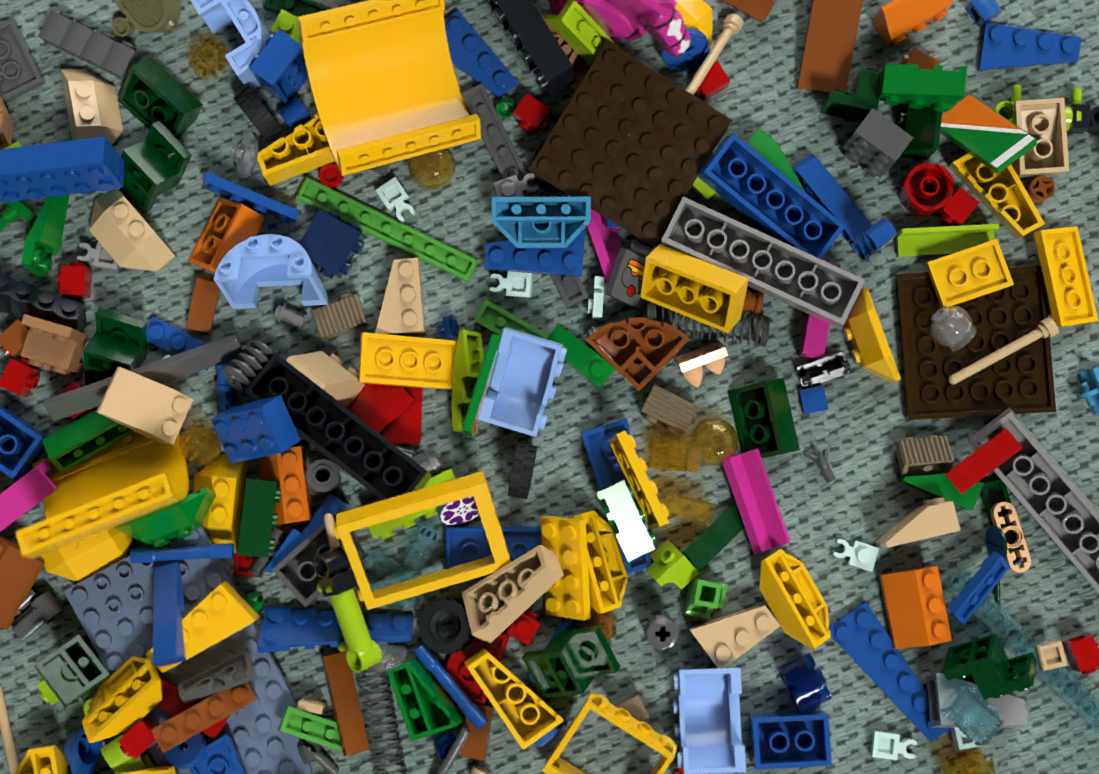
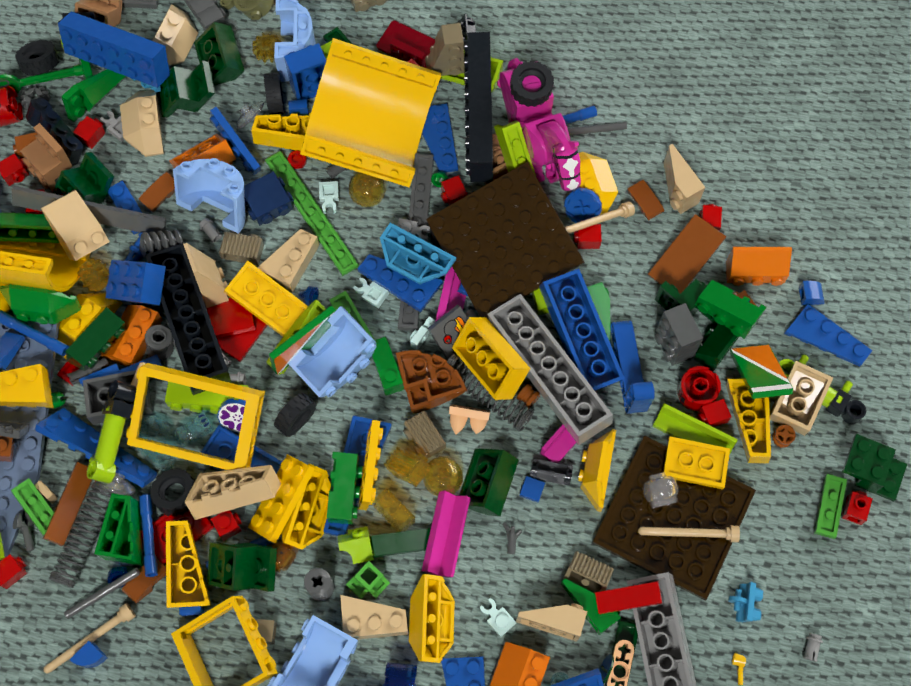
camera: 25 degrees right, 15 degrees down
(1066, 276) = (768, 507): yellow plate -> none

